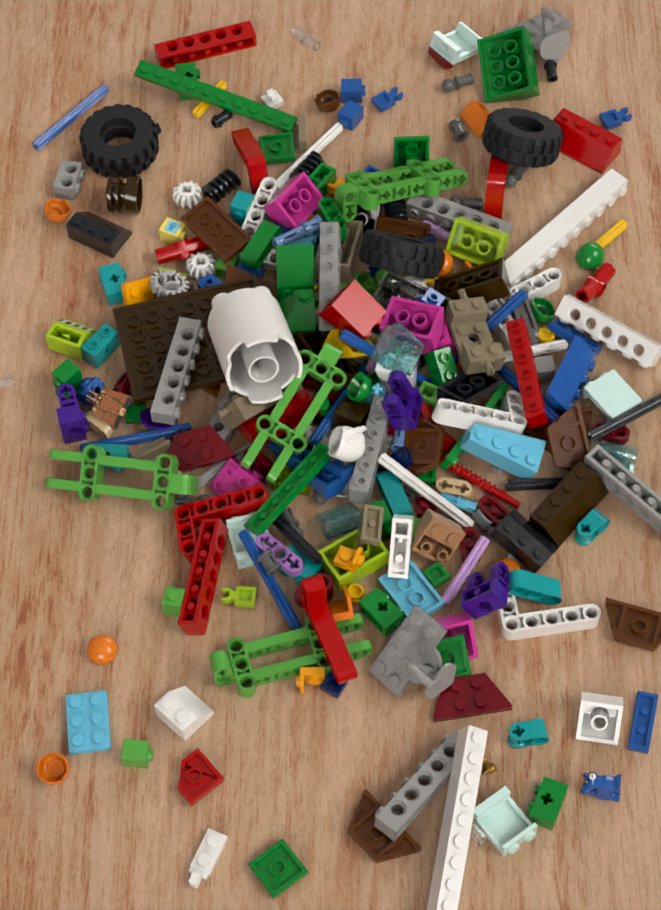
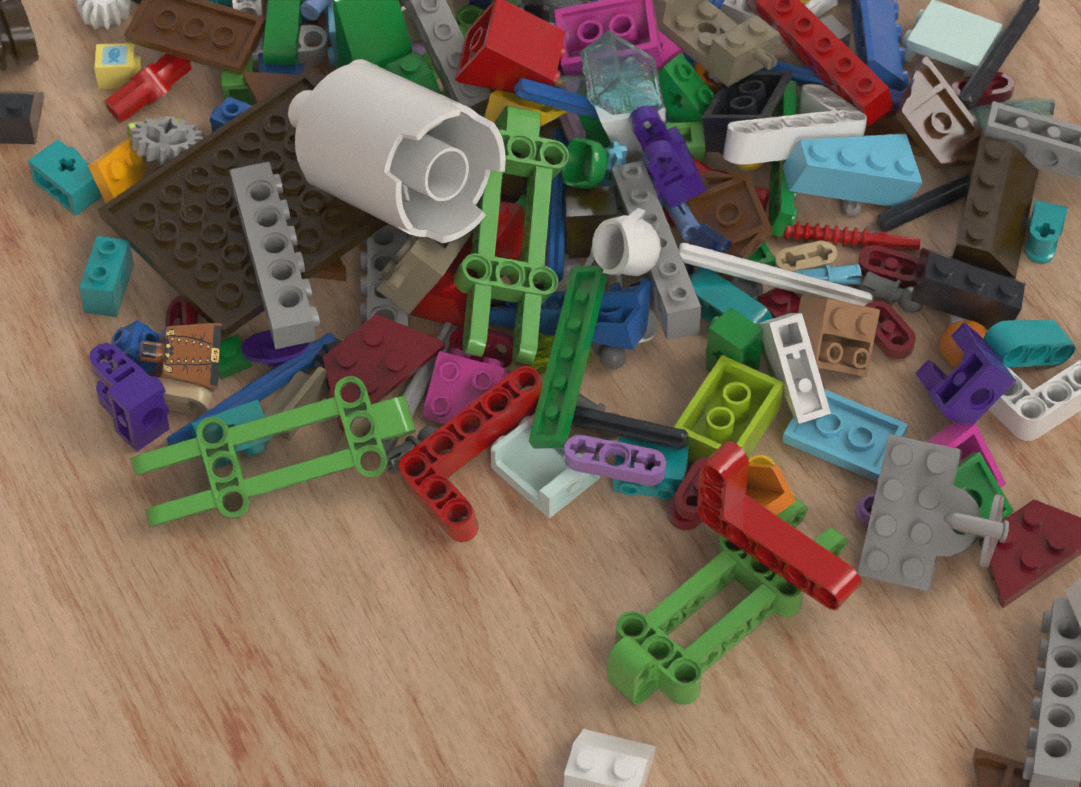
camera: 30 degrees left, 5 degrees down
(67, 373) = (83, 333): green brick -> none
(68, 337) = (46, 287): lime slope -> none
(102, 649) = (410, 734): orange hair -> none
(172, 601) = (485, 606): bright green brick -> none
(200, 265) = (195, 97): white gear -> none
(203, 577) = (510, 548): red brick -> none
(243, 596) = (587, 551): lime plate -> none
(269, 562) = (612, 475): dark grey bush -> none
(270, 581) = (621, 506): blue axle -> none
(309, 675) = (776, 622): light orange bracket -> none
(331, 687) = (818, 620): clear blue plate -> none
(339, 520) = (665, 375): clear light blue slope -> none
(349, 558) = (733, 416): light orange bracket -> none
(370, 525) = (735, 354): dark tan panel -> none
(374, 607) = (823, 480): green brick -> none
(436, 575) = (867, 390): green plate -> none
(465, 570) = (908, 363): lavender axle -> none

